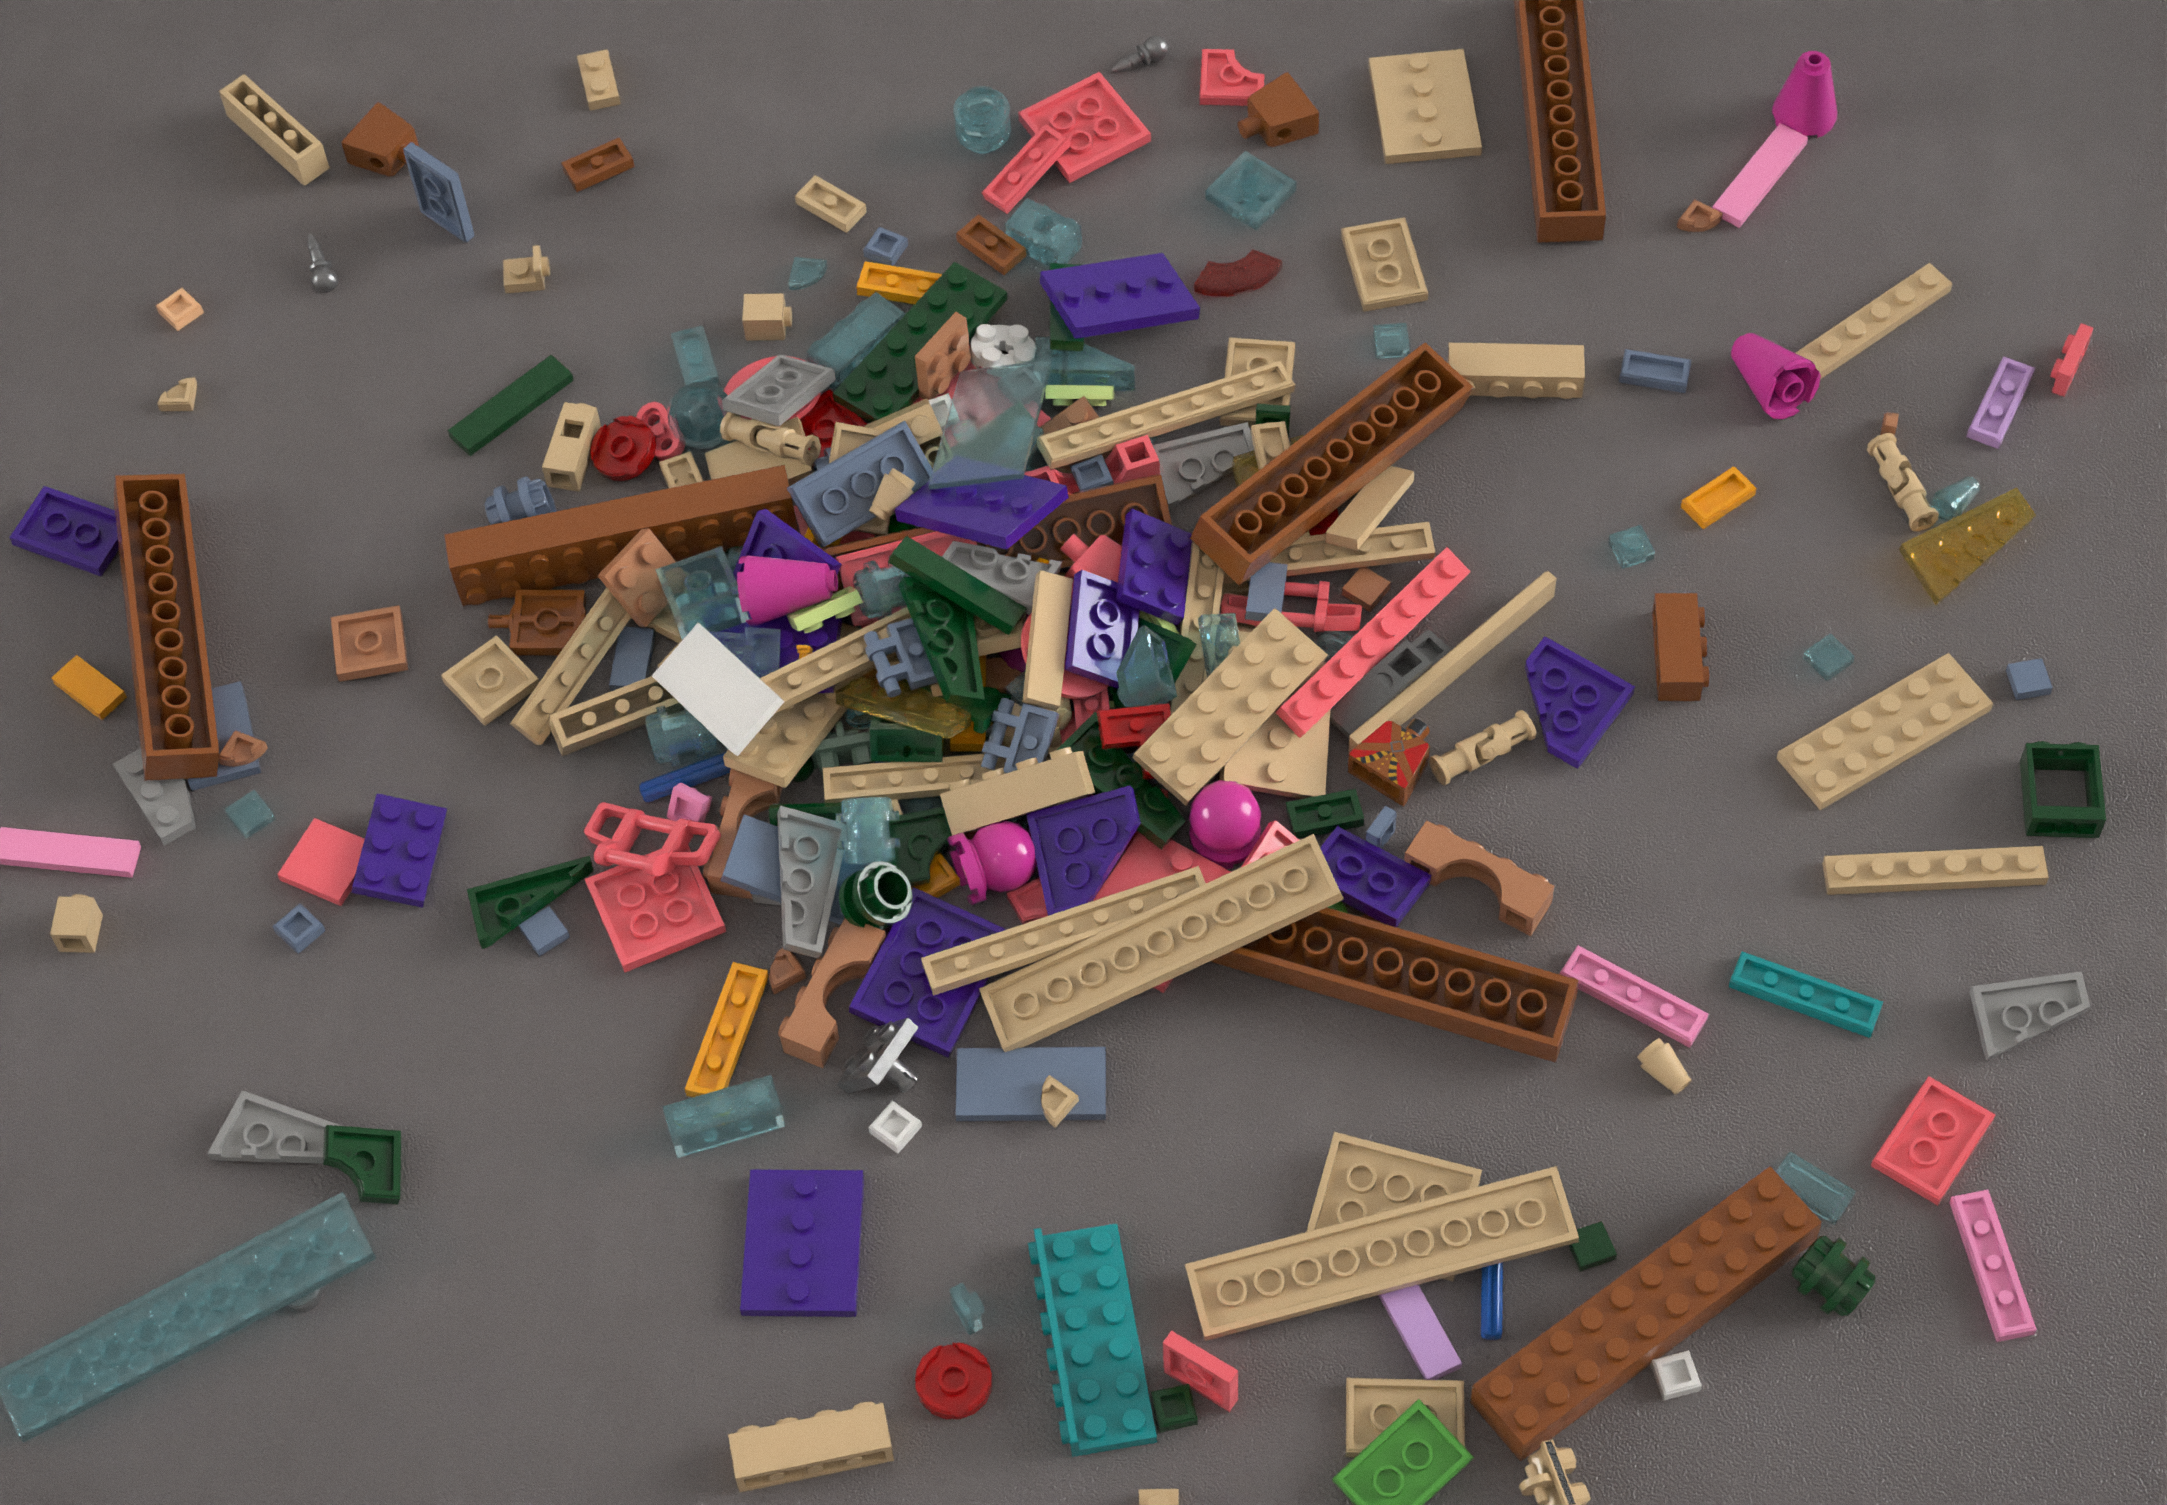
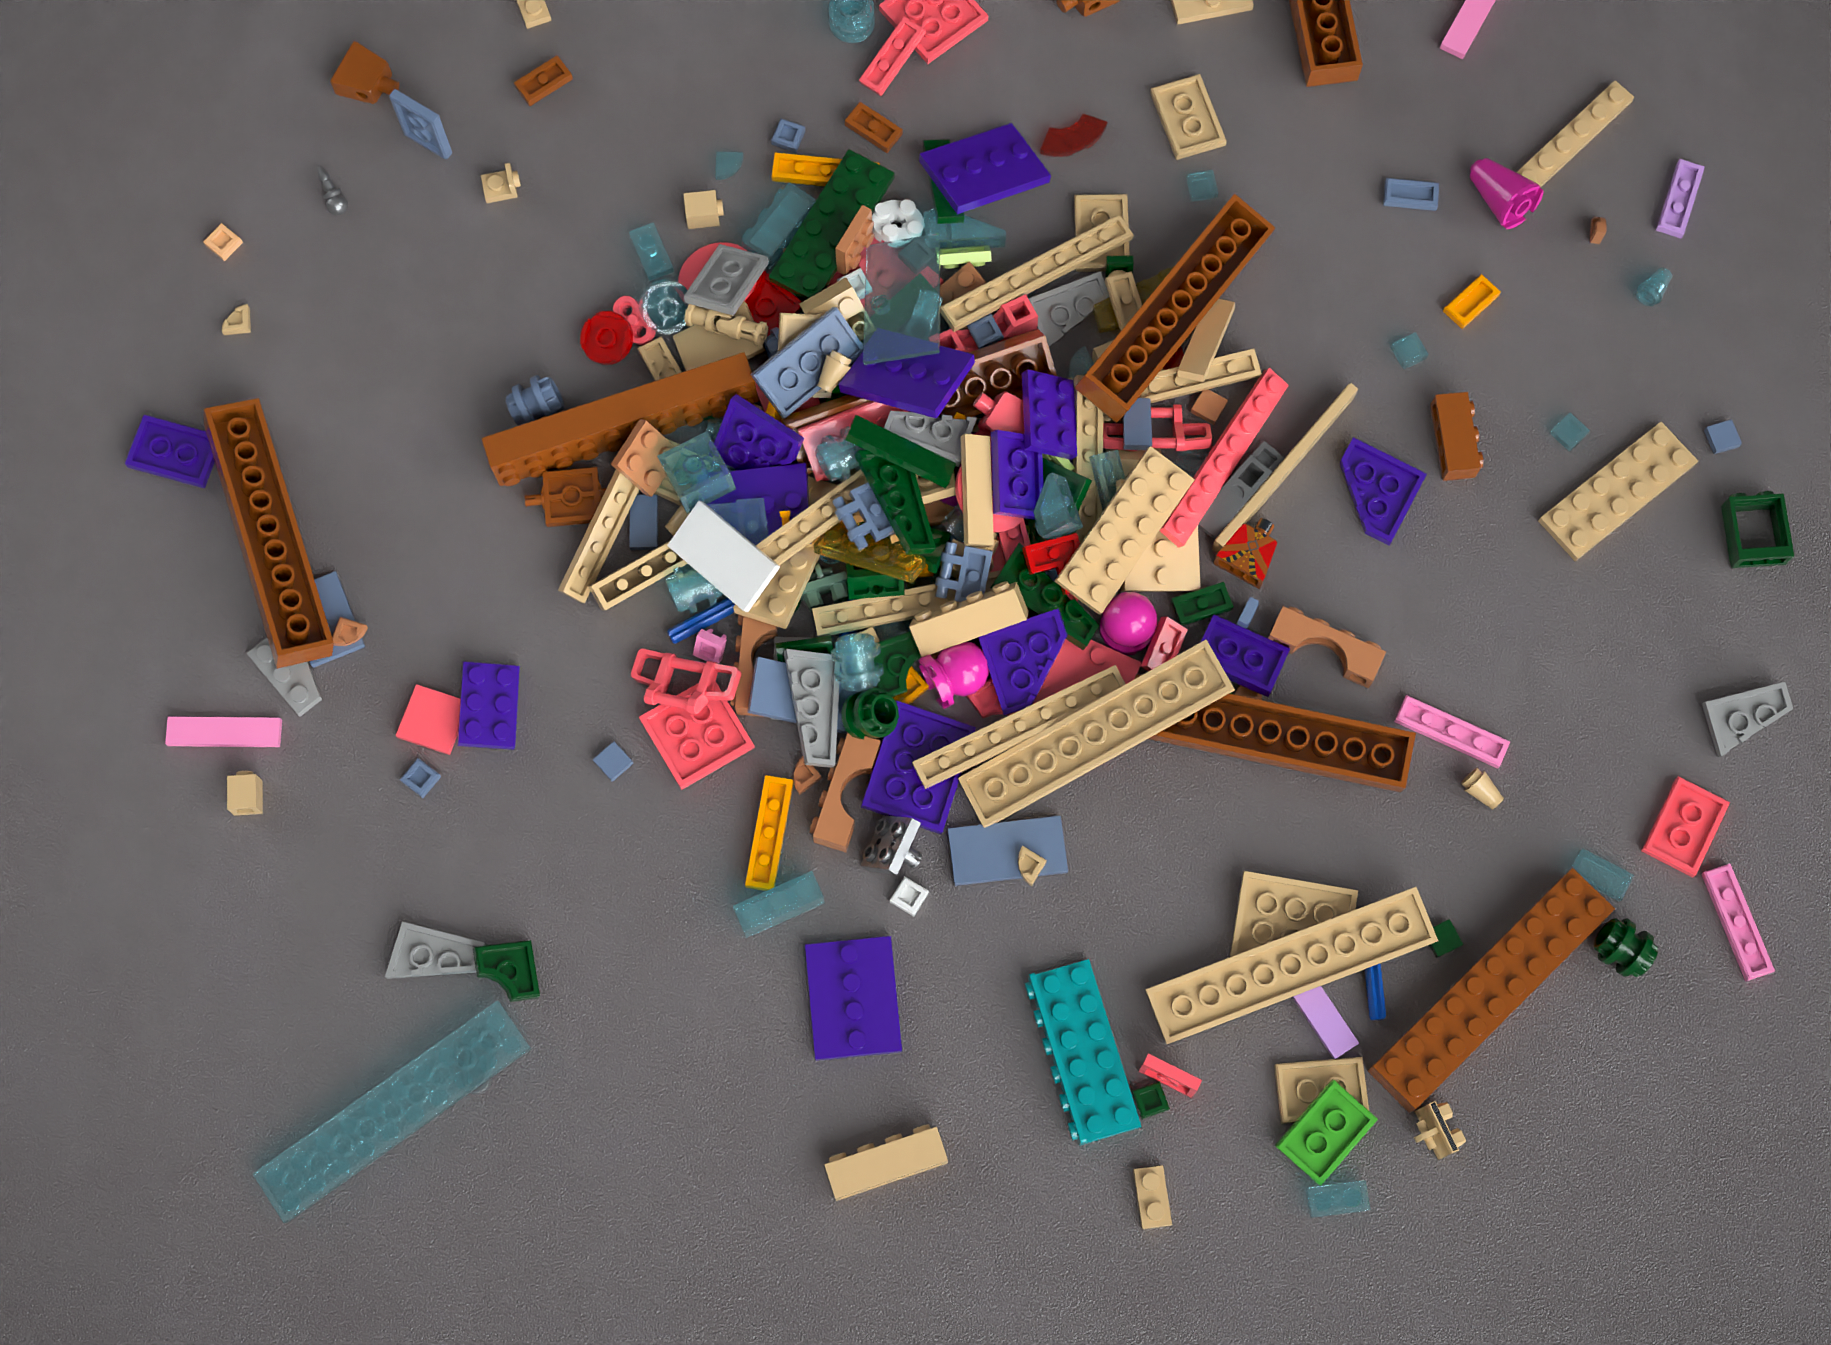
camera: 10 degrees left, 15 degrees up
(89, 687) = (214, 587): light orange tile -> none
(250, 814) = (363, 684): clear light blue tile -> none
(274, 129) = (271, 73): tan brick -> none
(369, 643) = (432, 529): nougat plate -> none
(490, 680) = (535, 552): tan plate -> none
(510, 405) = (508, 305): dark green tile -> none
(511, 901) = (582, 741): dark green wing -> none
(570, 446) = (565, 339): tan brick -> none
(782, 586) = (761, 462): dark pink cone -> none
(830, 204) = (738, 101): tan plate -> none
(840, 605) = (794, 477): yellowish green plate -> none
(953, 1381) = (983, 1096): red tile -> none
(967, 1307) = (987, 1039): clear light blue plate -> none
(1044, 233) = (915, 114): clear light blue brick -> none
(1250, 182) = (1078, 52): clear light blue plate -> none
(1484, 745) = (1316, 536): tan piece -> none
(1520, 369) = (1307, 204): tan brick -> none
(1676, 1375) = (1516, 1034): white tile -> none
(1699, 217) = (1431, 53): nougat tile -> none
(1805, 994) = (1580, 717): teal tile -> none
(1902, 482) = (1610, 273): tan piece -> none
(1935, 870) = (1666, 604): tan plate -> none
(1963, 544) = (1660, 329): clear yellow wing -> none
(2074, 348) = (1729, 166): coral plate -> none

